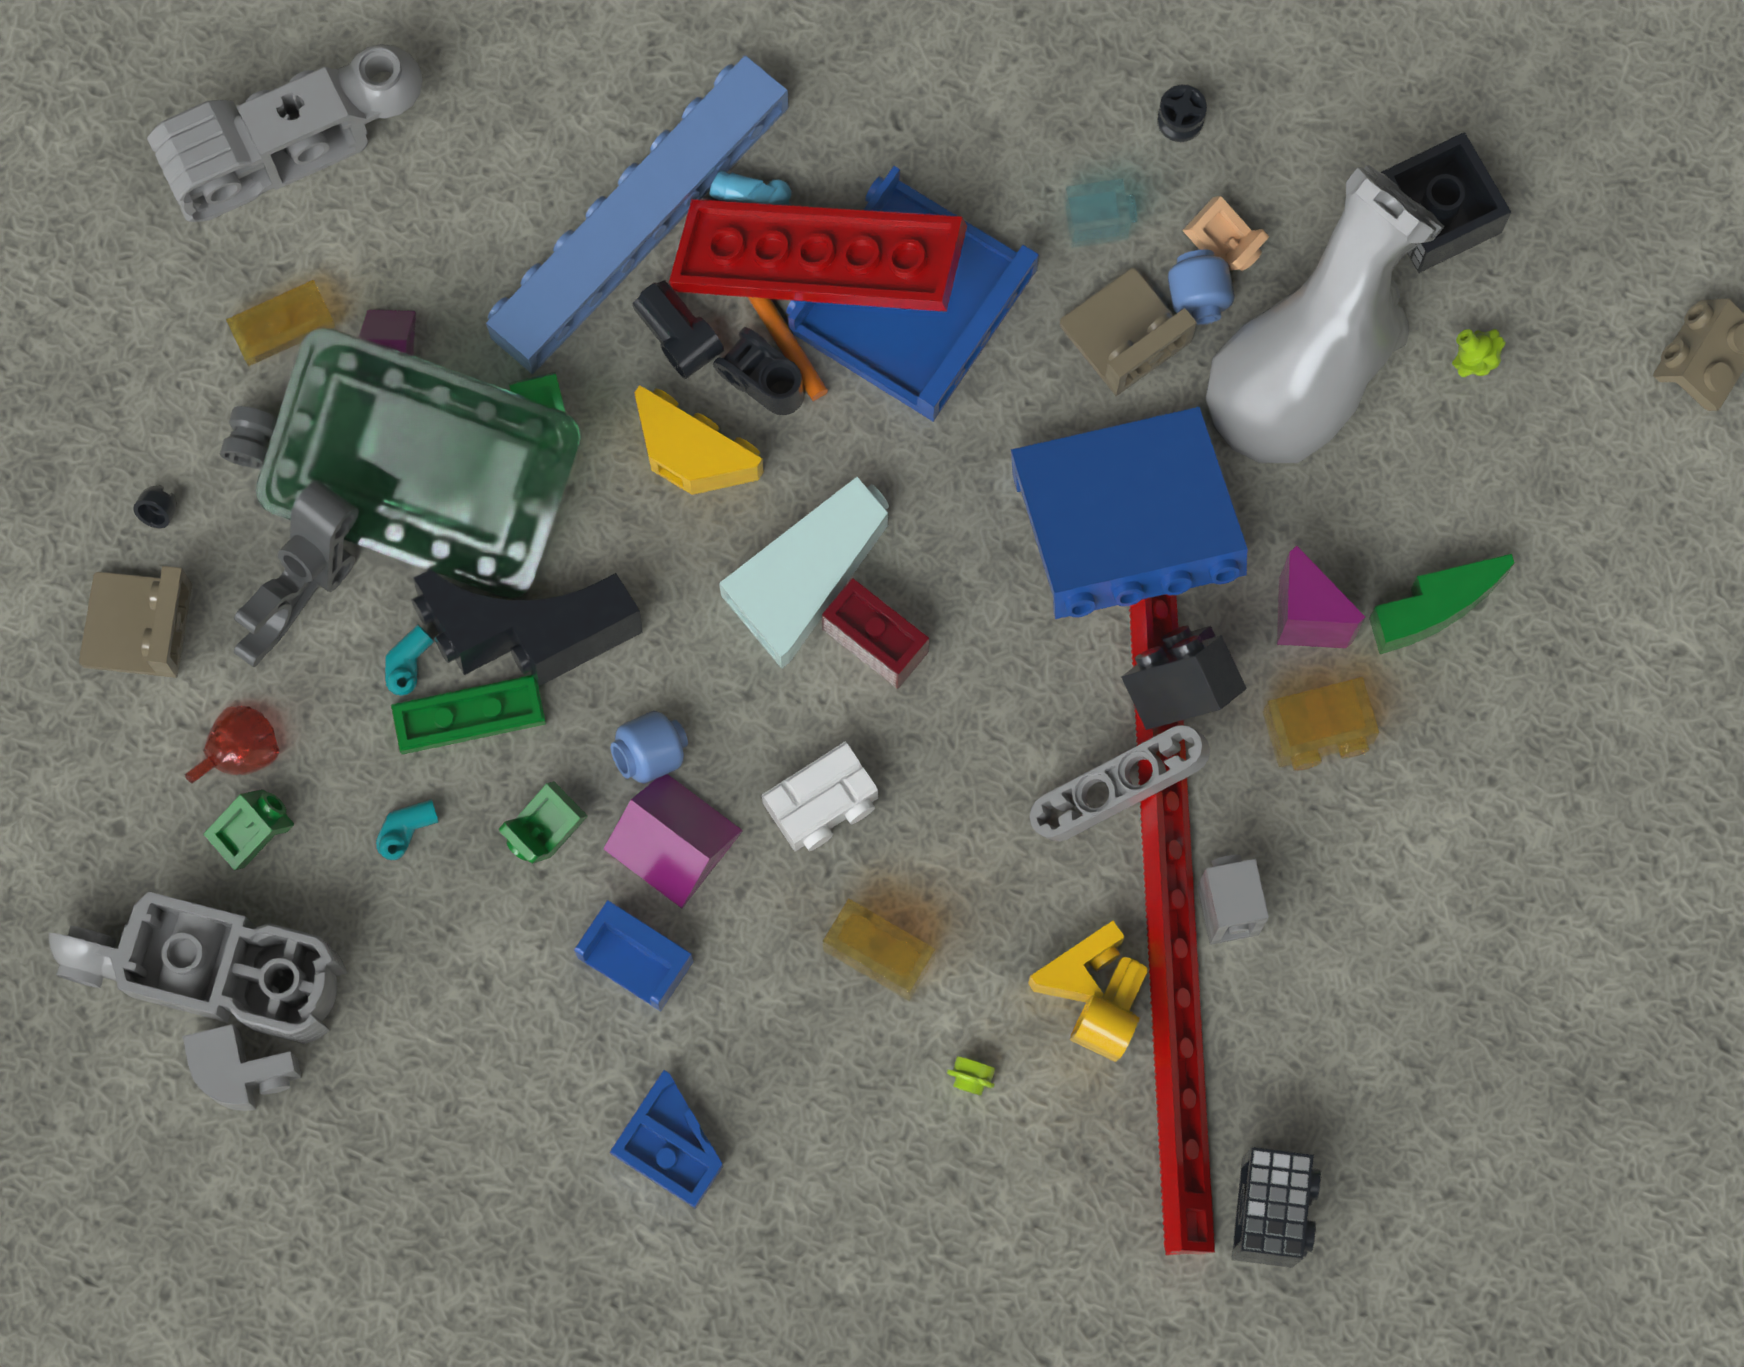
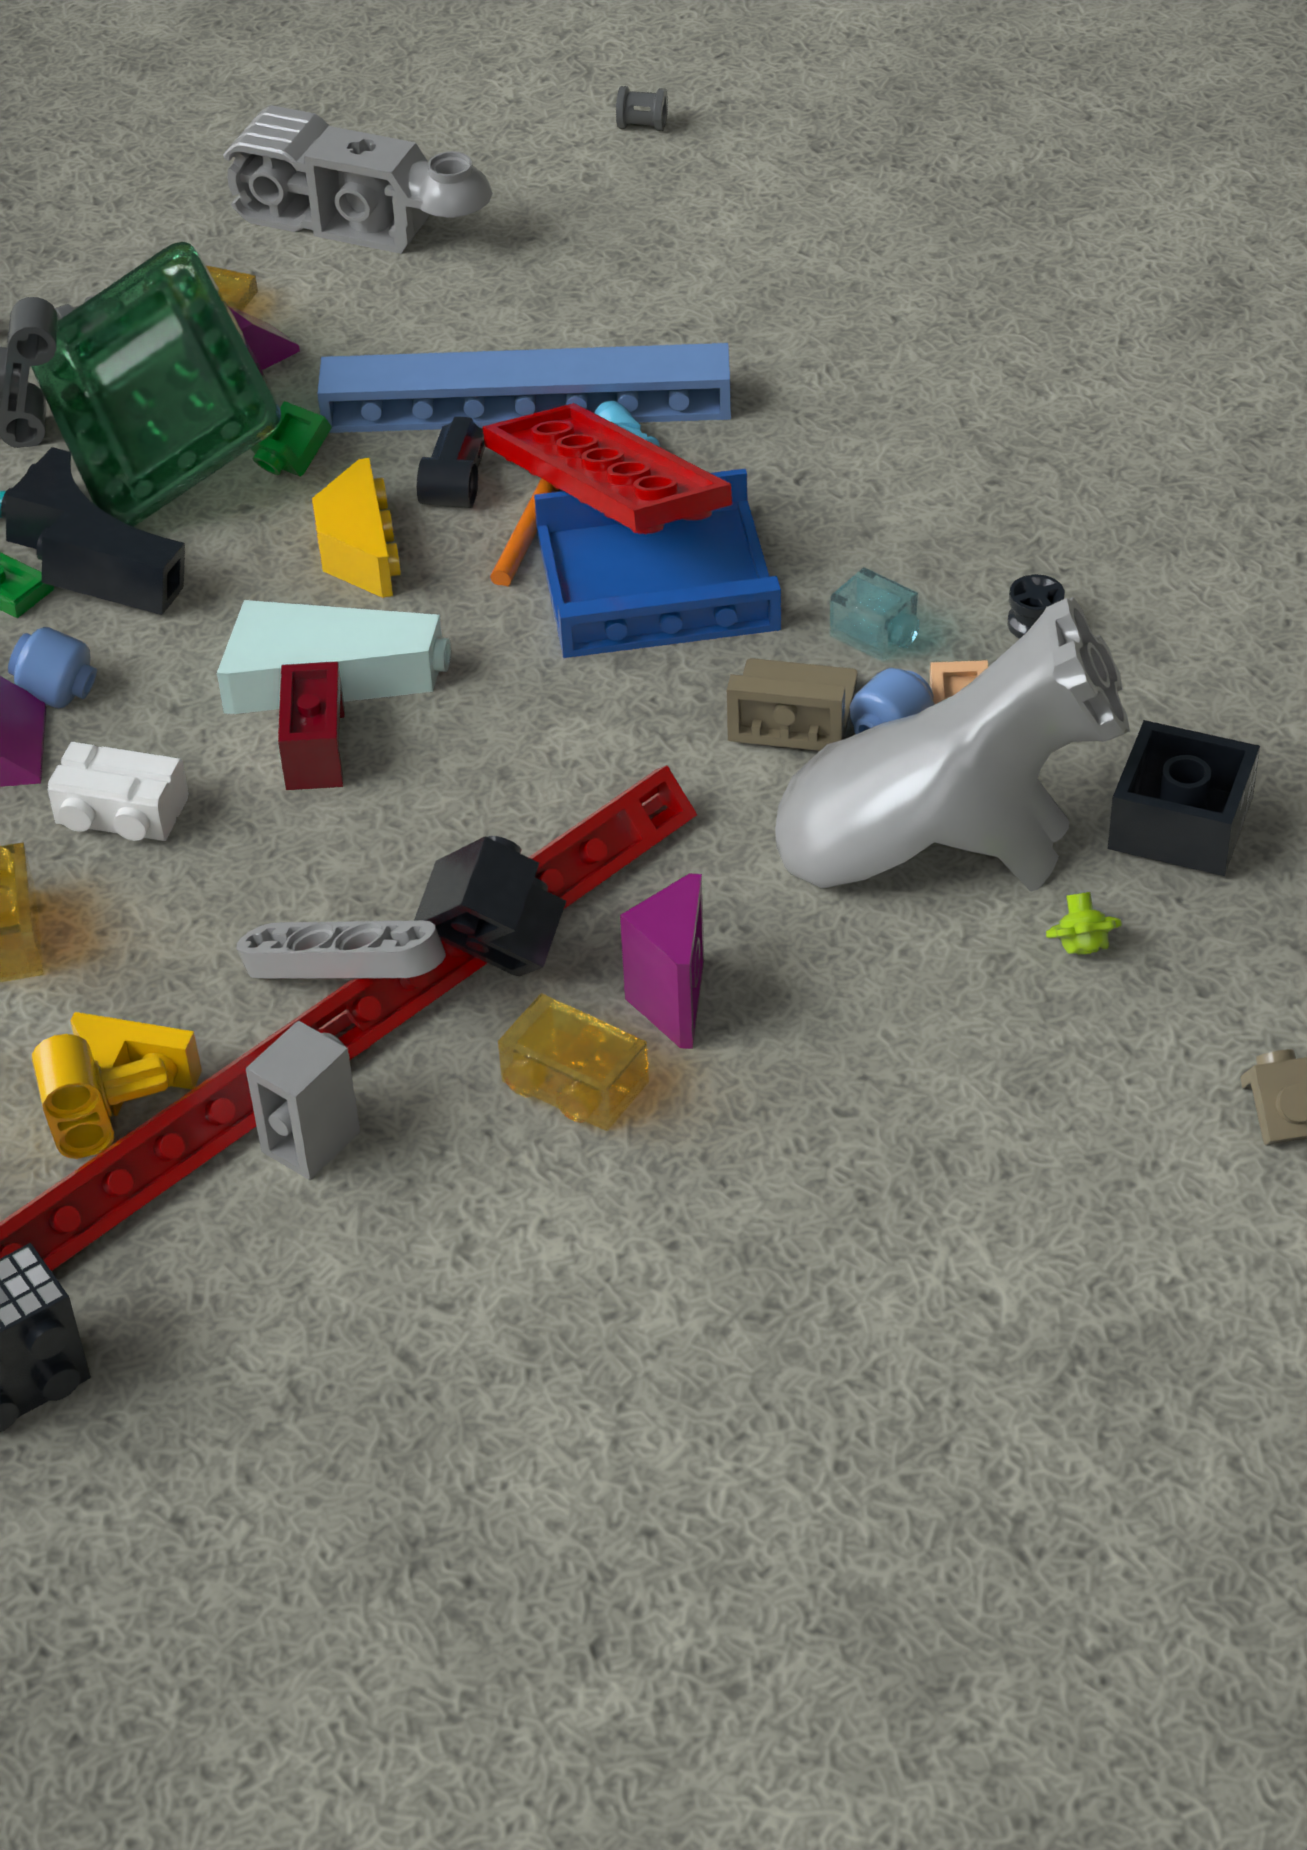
camera: 50 degrees right, 30 degrees down
(755, 367) = (474, 533): black piece -> none
(1130, 512) = (607, 785): blue panel -> none
(1436, 602) = (801, 1064): green slope -> none

